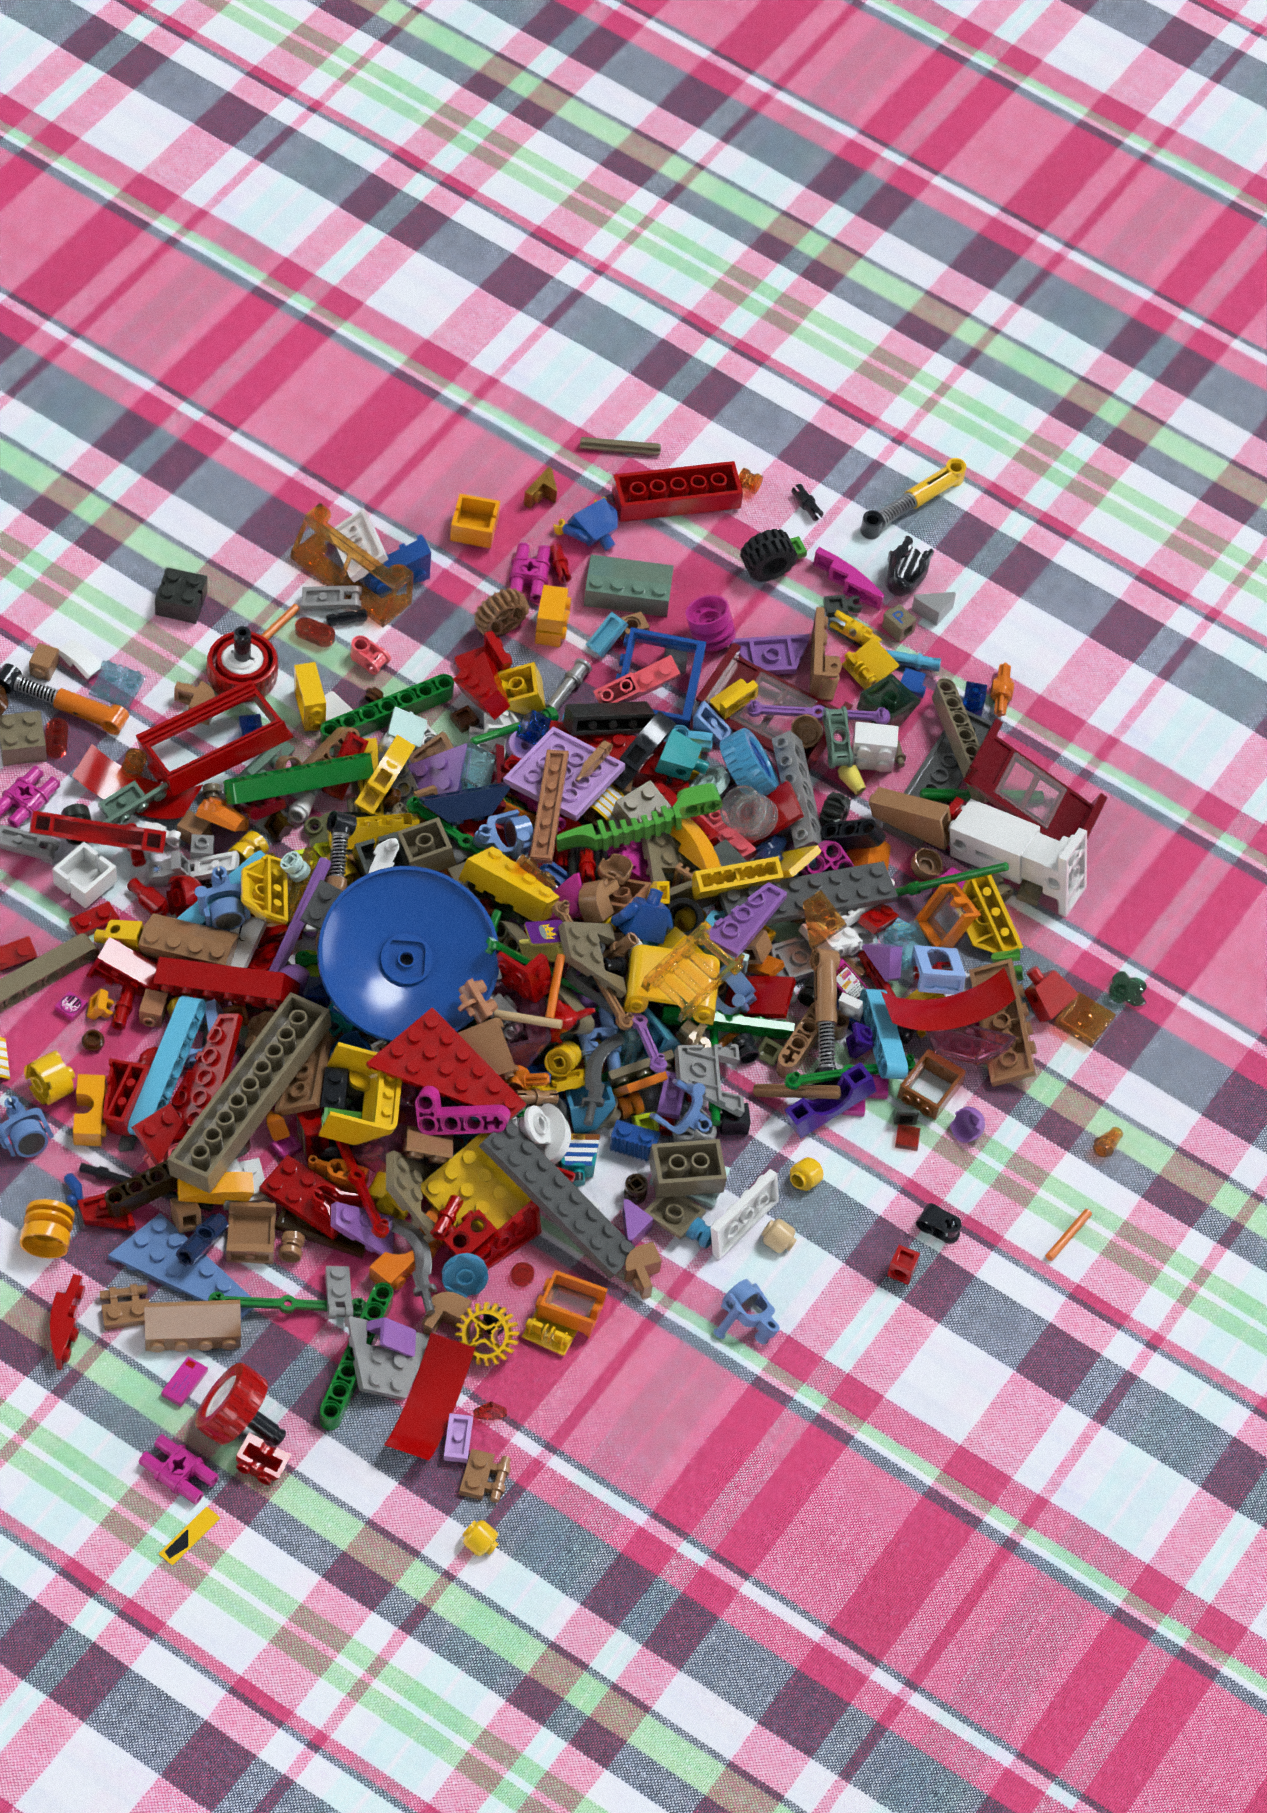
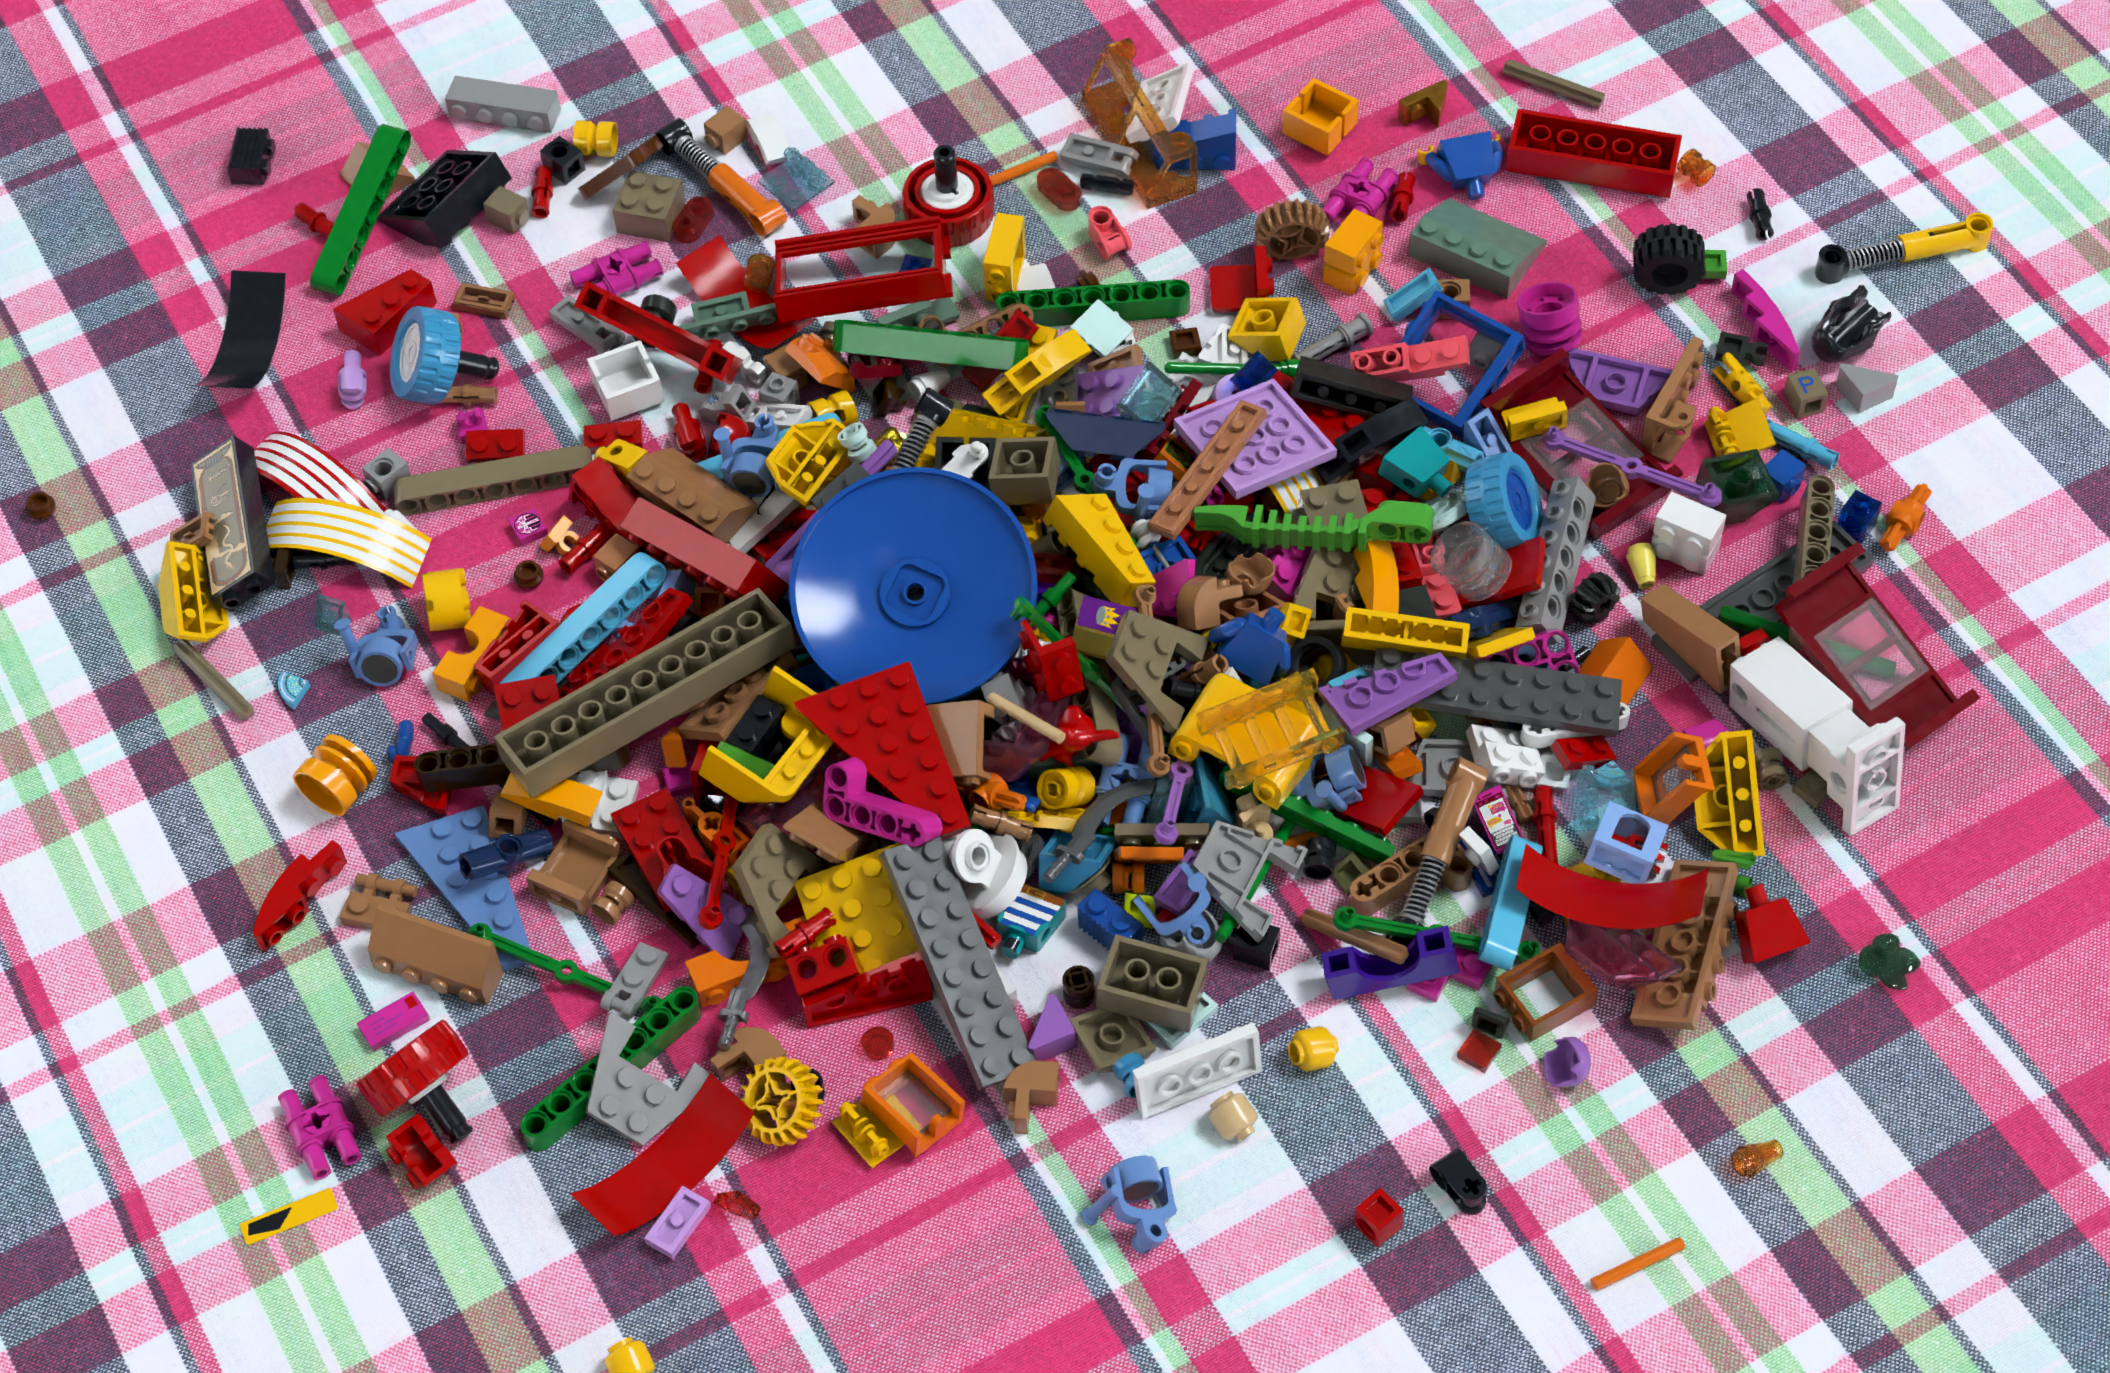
camera: 35 degrees right, 0 degrees up
(181, 595) = (919, 99): pearl dark grey piece -> none
(392, 797) = (1034, 403): reddish brown plate -> none
(394, 1335) = (660, 1060): medium lavender panel -> none
(465, 1274) = (796, 1016): dark azure tile -> none
(474, 1002) = (964, 671): nougat hips -> none
(477, 1473) = (678, 1278): medium nougat plate -> none
(483, 686) = (1218, 306): red wedge -> none
(531, 867) = (1141, 534): clear orange wing -> none
(555, 985) = (1078, 687): orange bar -> none
(587, 865) = (1219, 557): red pin -> none
(595, 760) = (1298, 432): medium nougat piece -> none
(821, 919) = (1492, 724): clear orange wing -> none
(837, 722) = (1635, 523): sand green piece -> none
(854, 834) = (1600, 633): black beam -> none
(860, 1040) = (1475, 899): dark purple bracket -> none
(886, 959) = (1563, 808): medium lavender slope -> none
(900, 758) = (1721, 559): dark tan piece -> none
(916, 887) = (1655, 729): green bar -> none
(926, 864) = (1686, 704): medium nougat hair -> none
(1085, 1019) = (1806, 980): clear orange plate -> none

